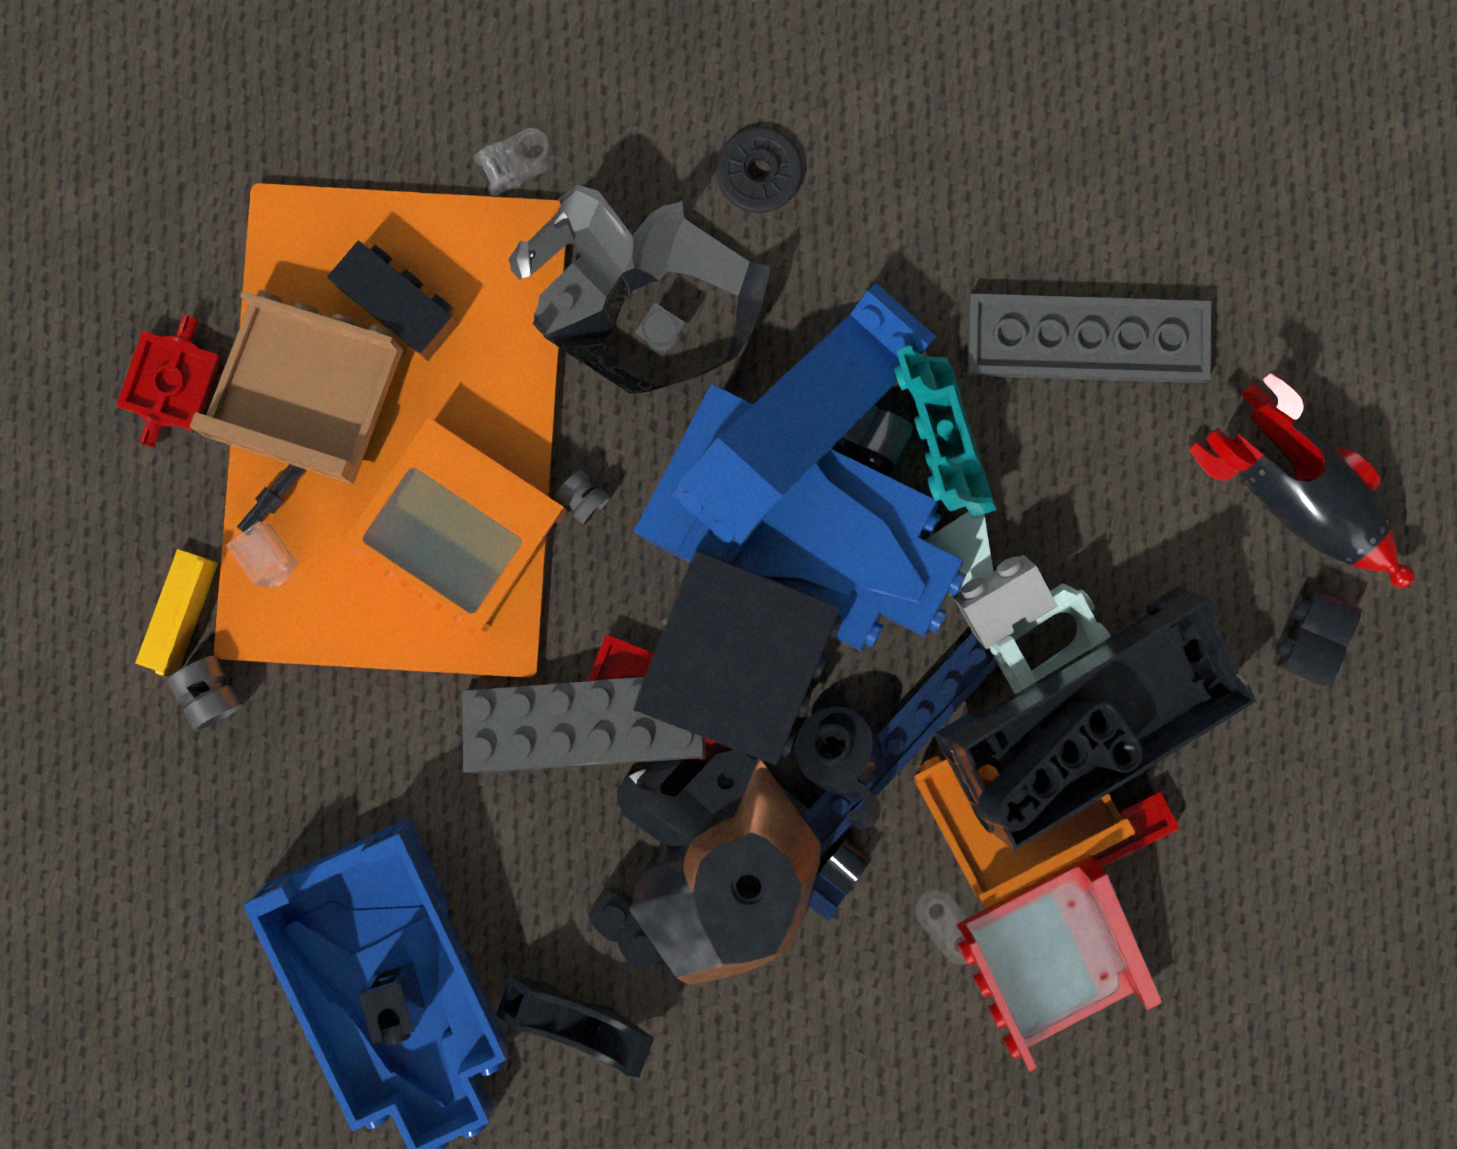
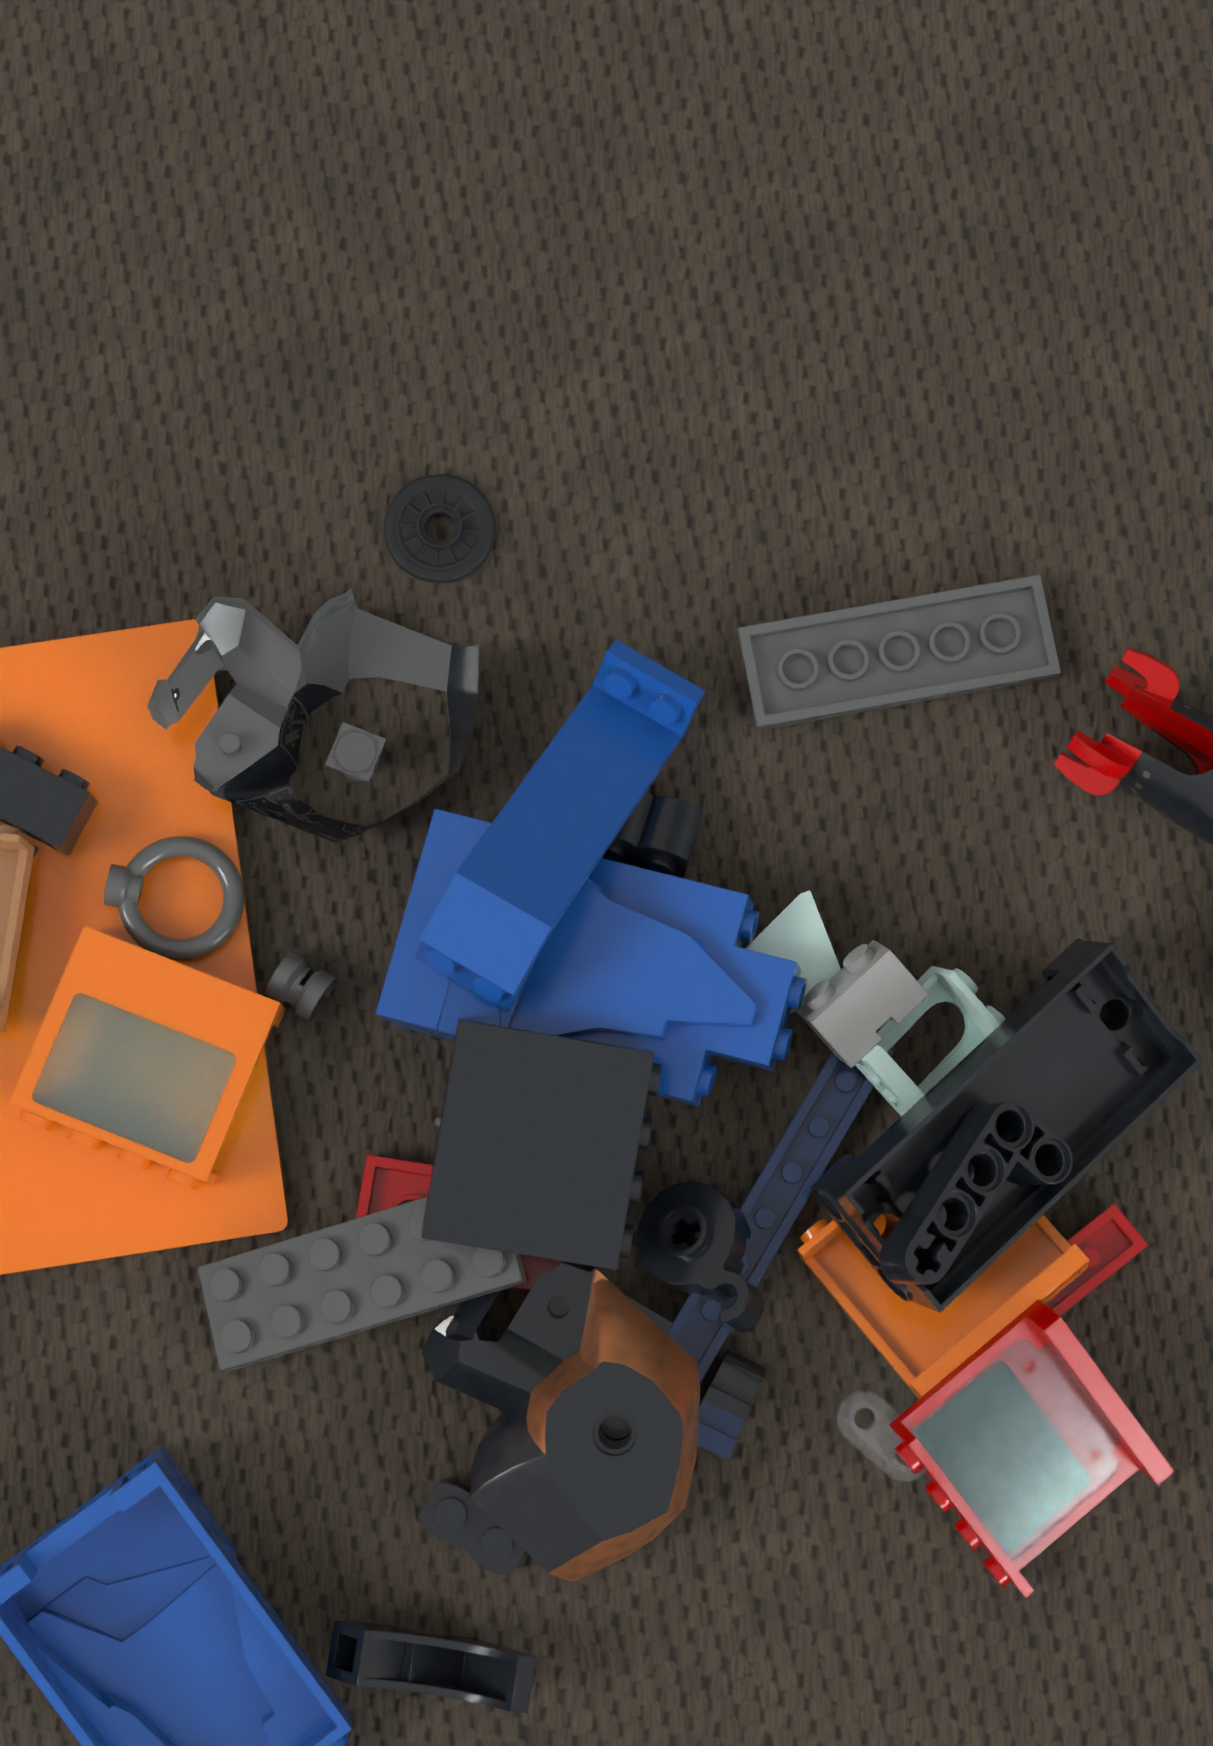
camera: 15 degrees left, 5 degrees down
(392, 1004) = (190, 1689): black brick -> none
(466, 392) = (125, 889): none -> dark grey piece
(512, 161) = (125, 582): clear piece -> none
(943, 421) = (737, 795): teal bracket -> none

